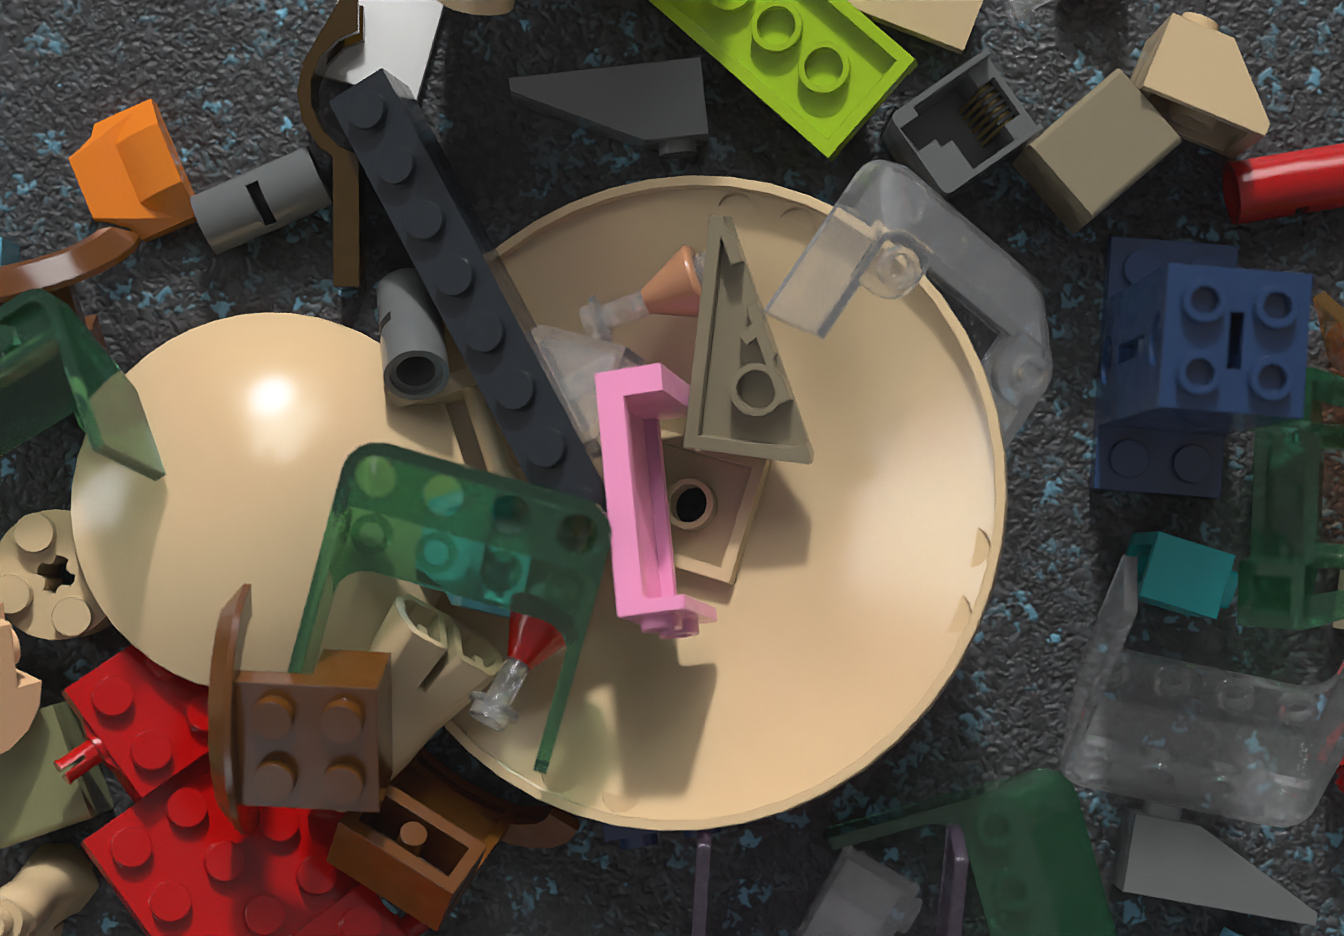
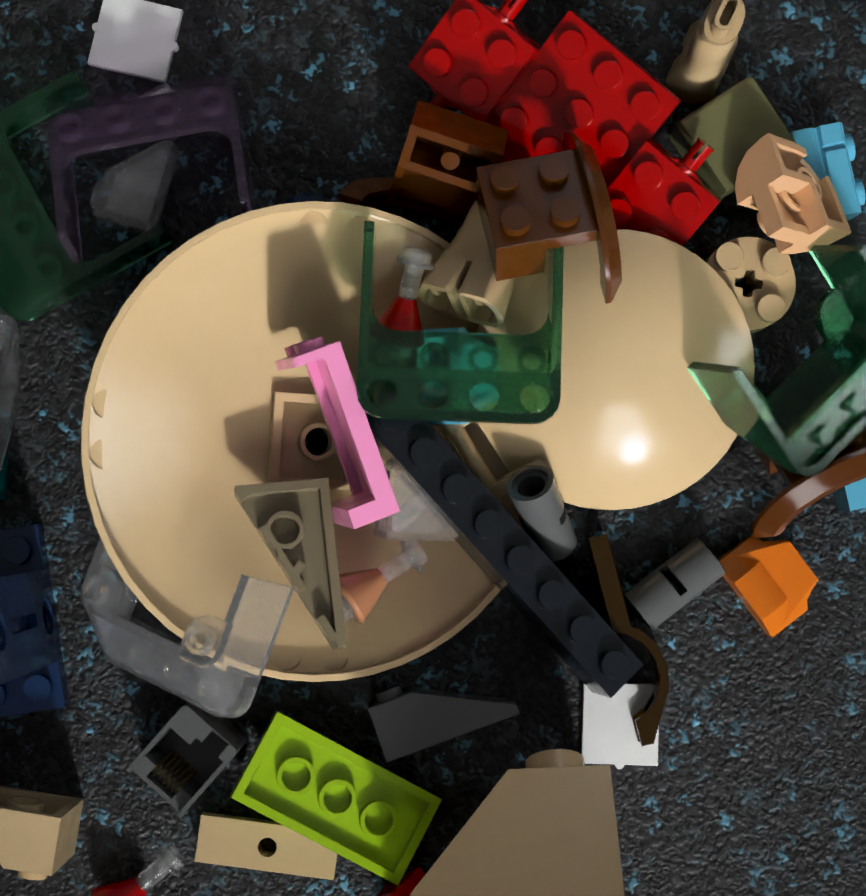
camera: 170 degrees right, 0 degrees up
(1096, 151) = (86, 763): dark tan piece -> none

